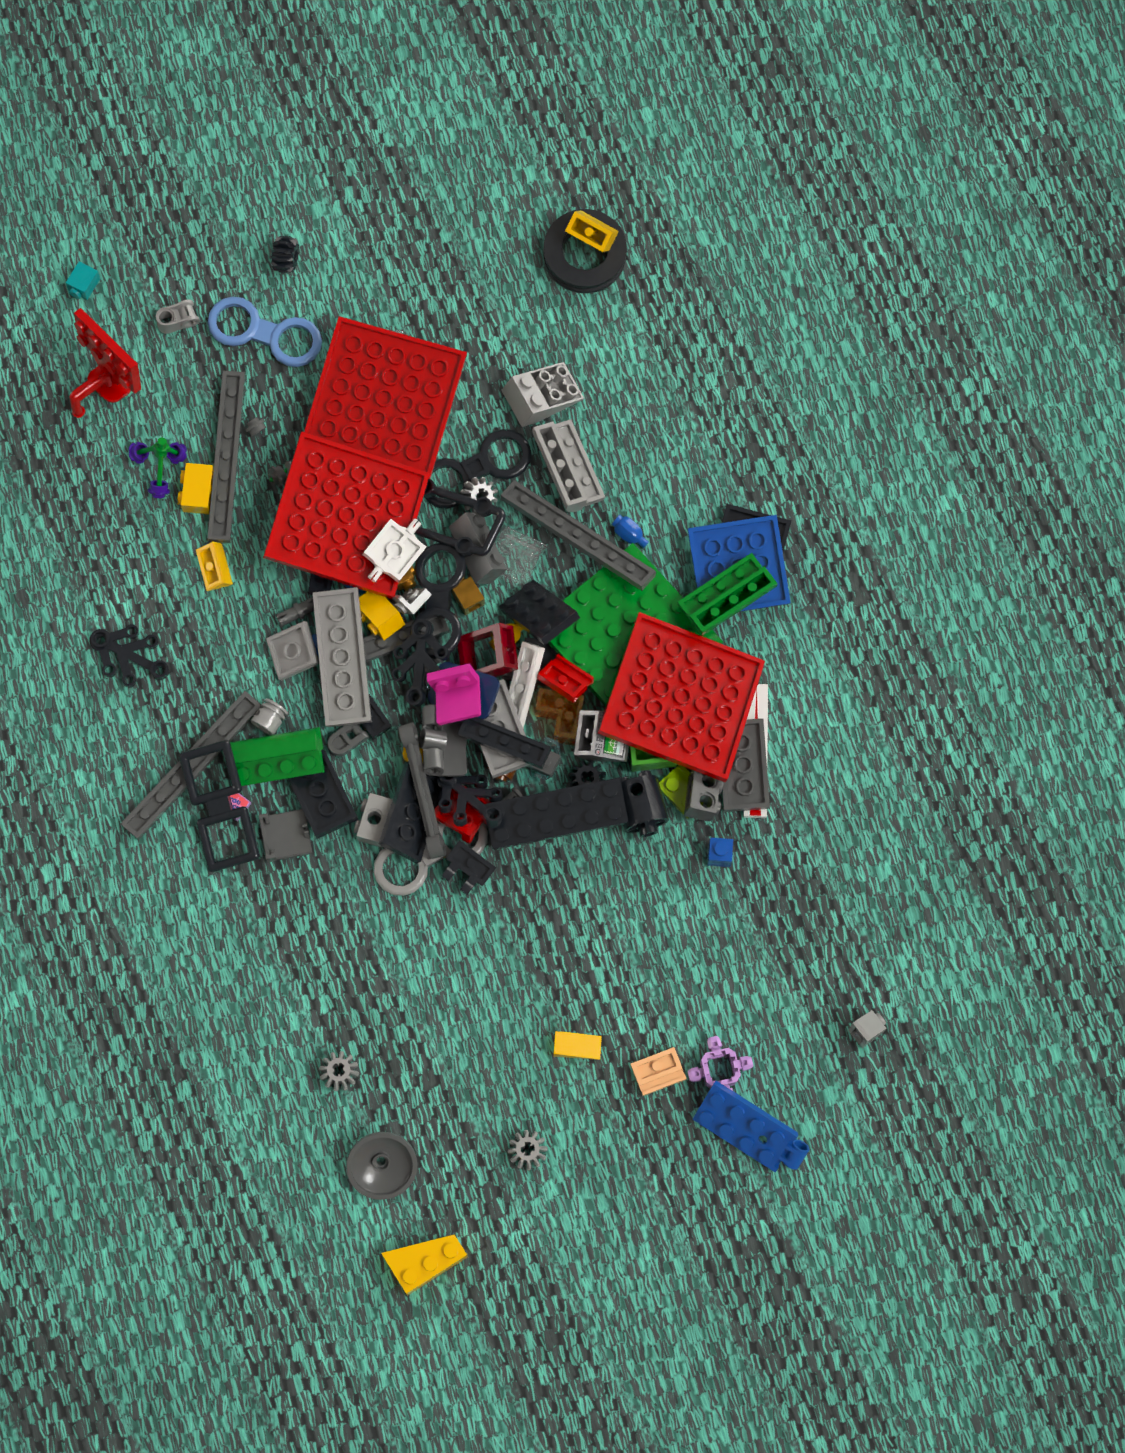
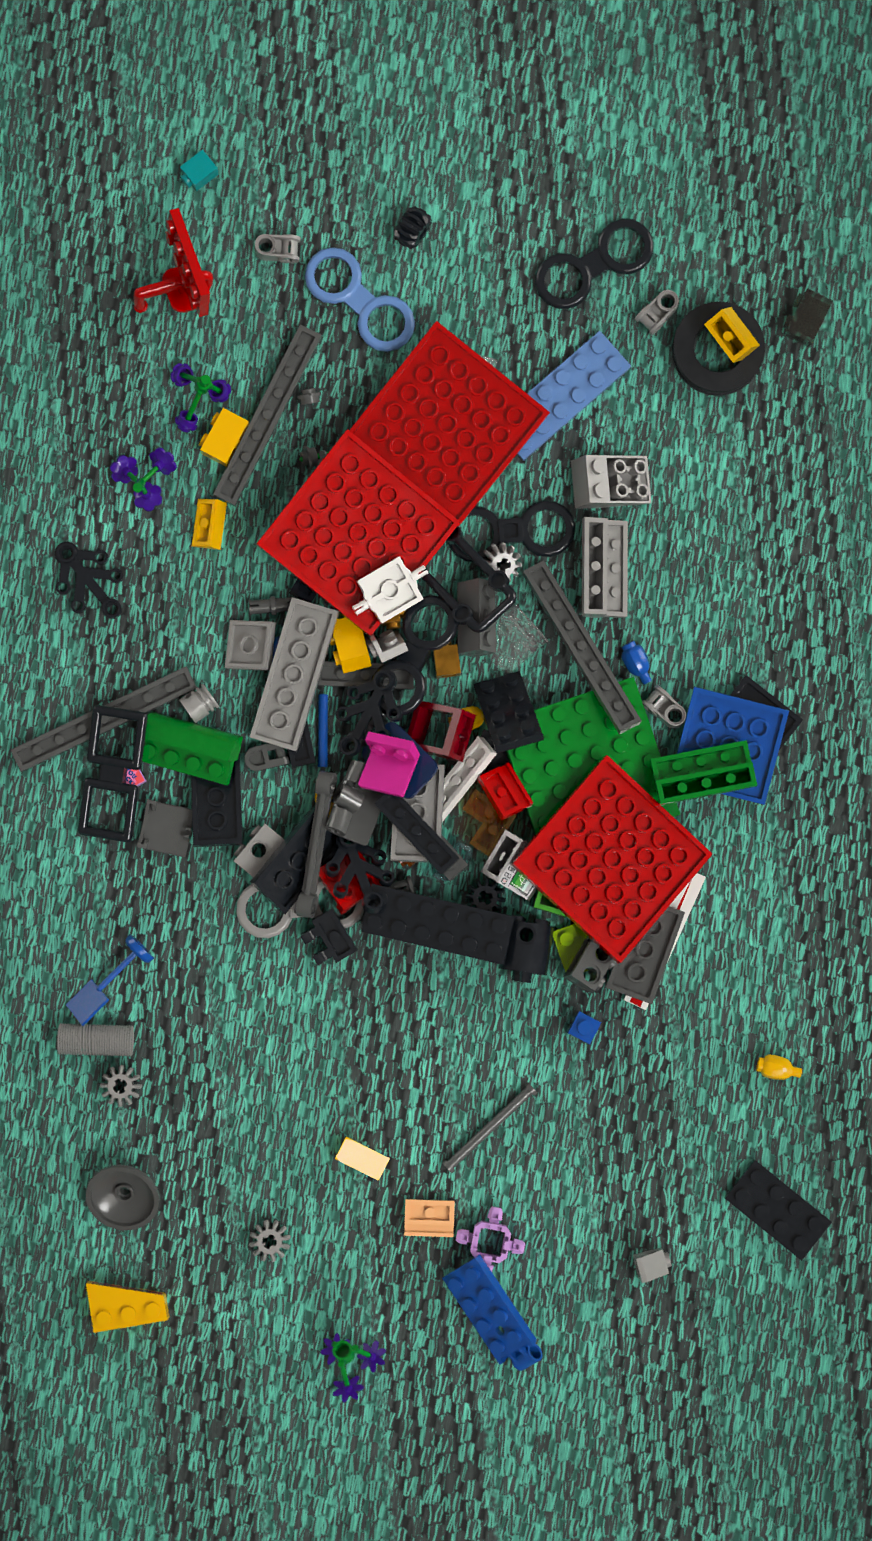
camera: 20 degrees right, 10 degrees up
(151, 563) = (146, 494): none -> dark purple plant
(282, 1005) = (91, 997): none -> blue piece
(299, 1040) = (95, 1039): none -> light grey piece
(386, 698) = (322, 730): none -> blue bar
(450, 225) = (594, 263): none -> black bar
(478, 329) = (574, 387): none -> medium blue plate
(520, 244) = (654, 314): none -> light grey piece
(634, 1214) = (344, 1354): none -> dark purple plant
(648, 197) = (807, 318): none -> clear smoke brick
(669, 557) = (663, 706): none -> light grey piece
(676, 973) = (489, 1127): none -> dark grey bar
(900, 817) = (777, 1067): none -> yellow plant
(955, 938) = (778, 1210): none -> black plate

